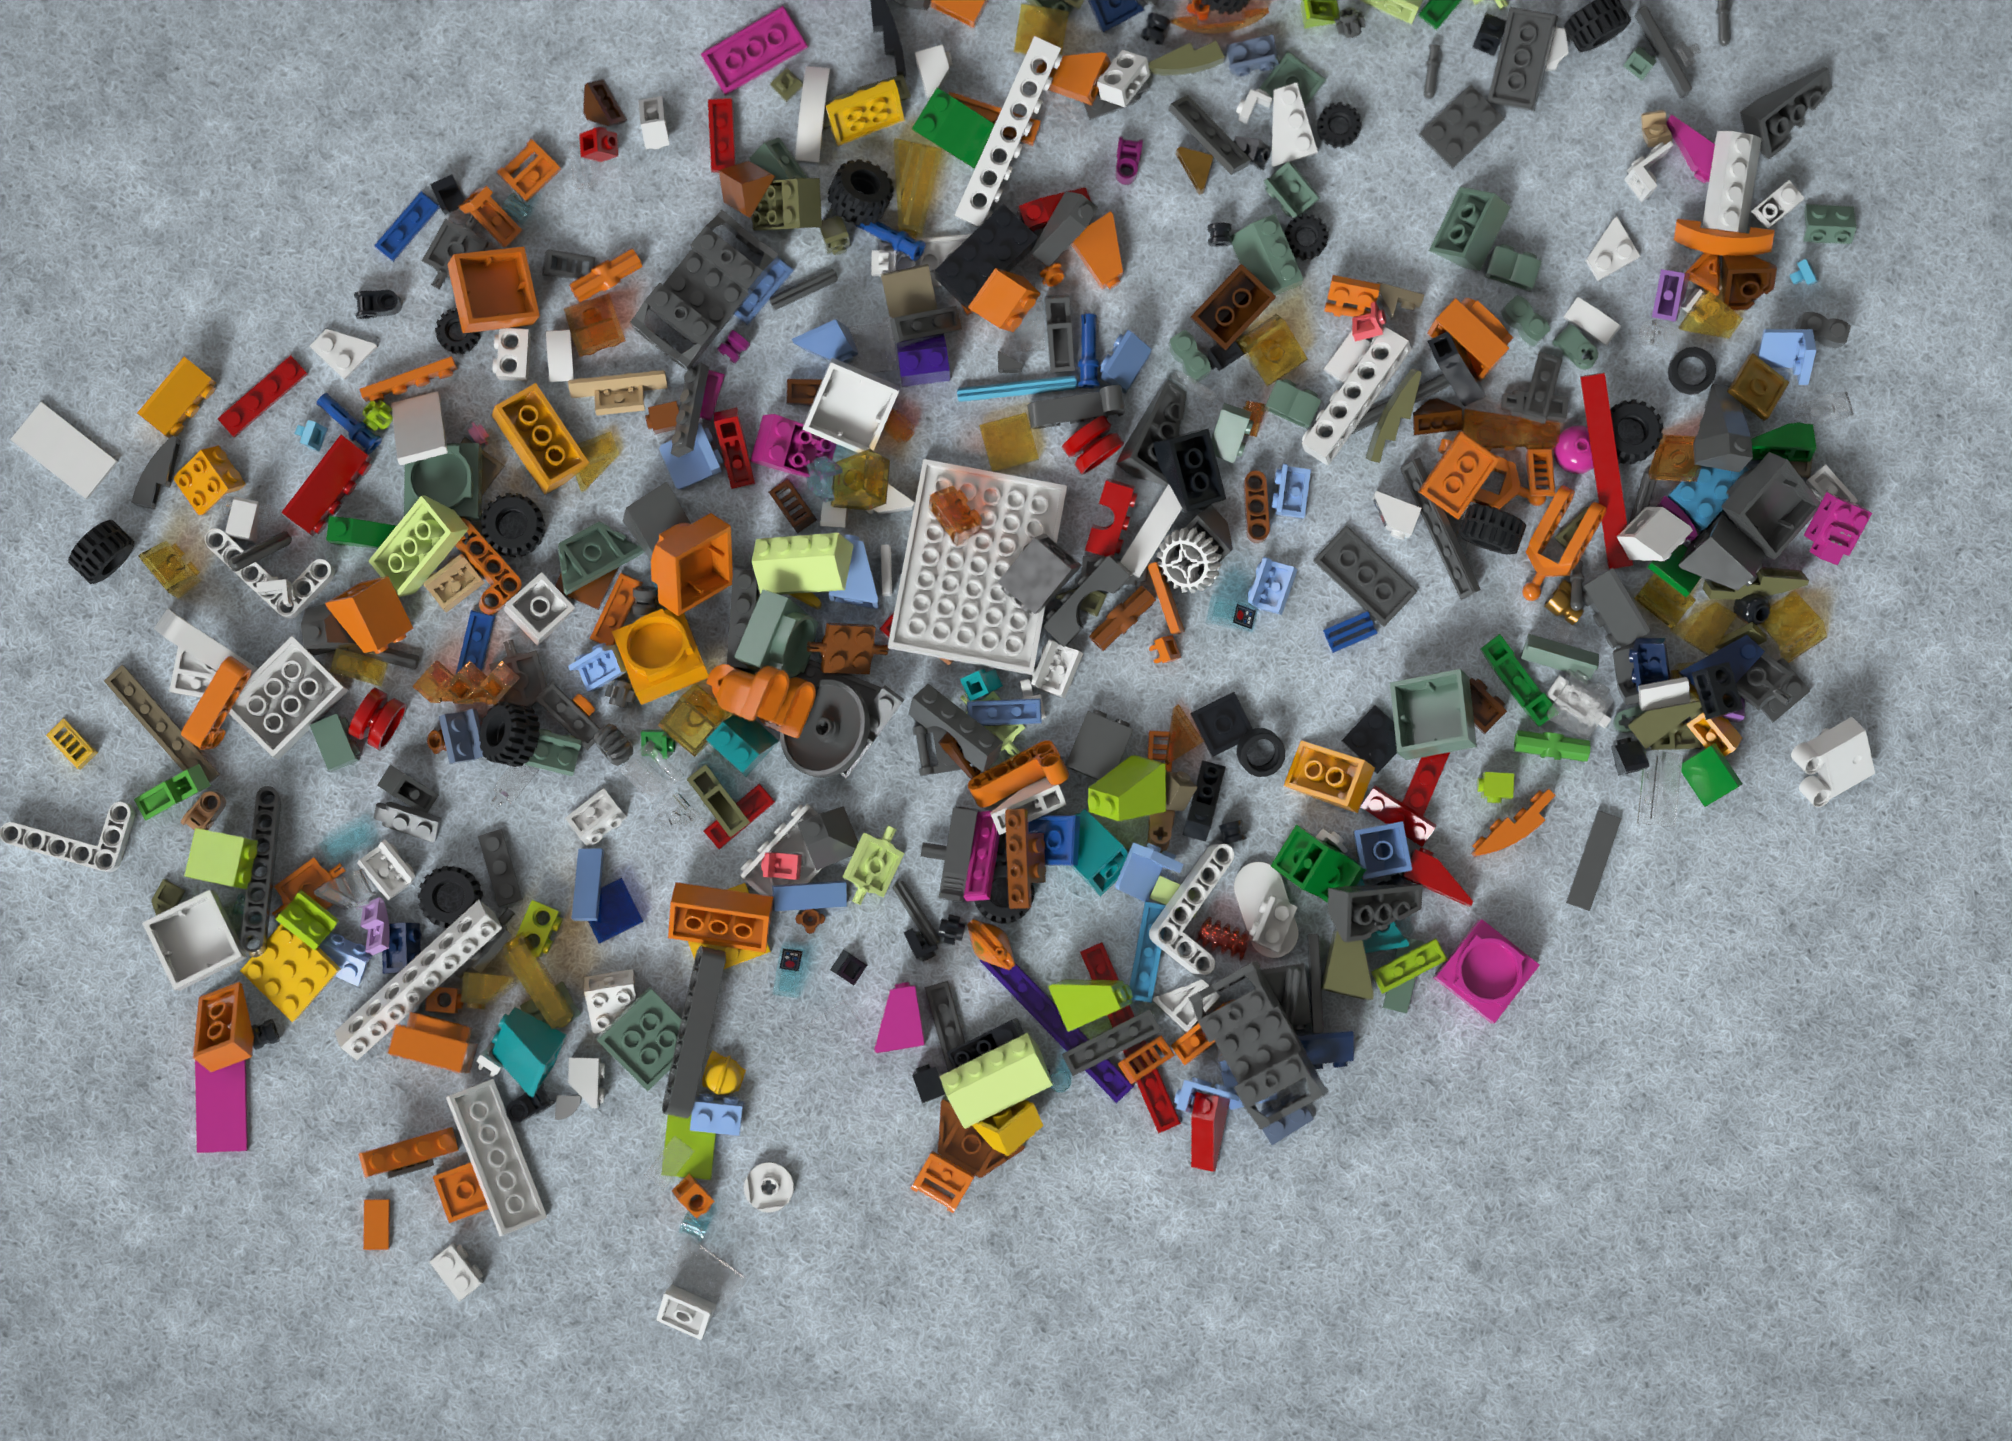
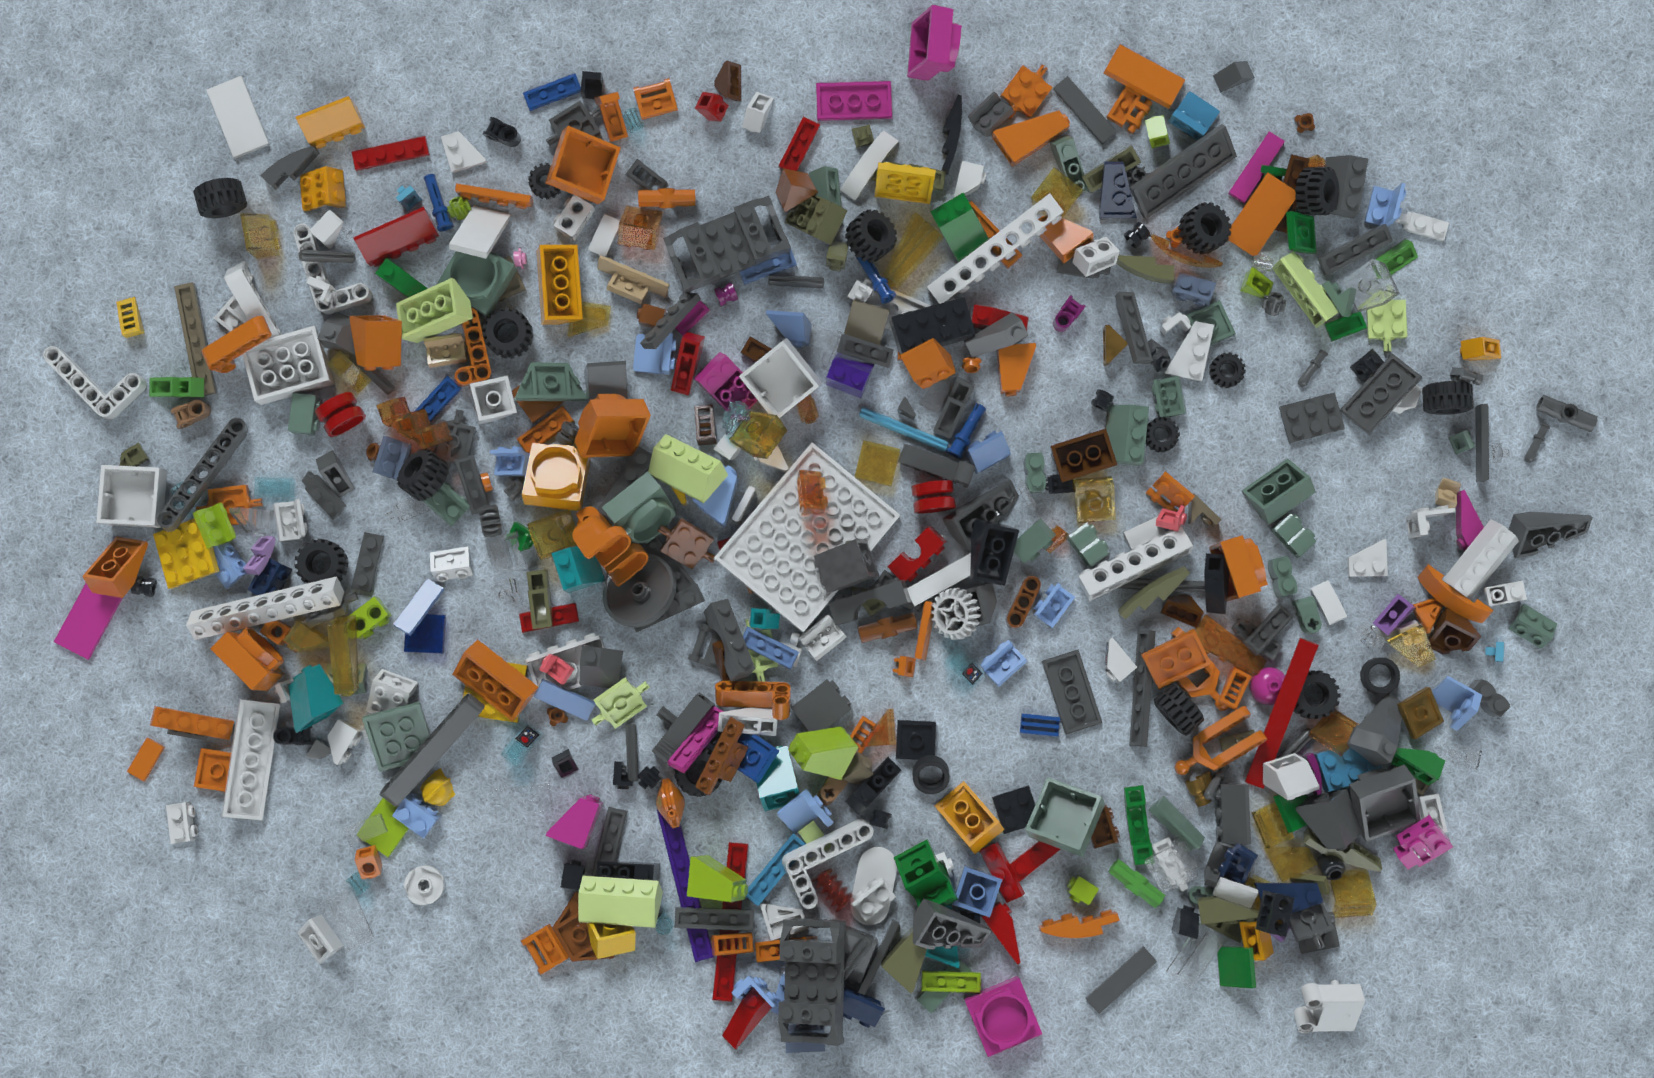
camera: 30 degrees right, 0 degrees up
(221, 858) = (179, 450): lime slope -> none

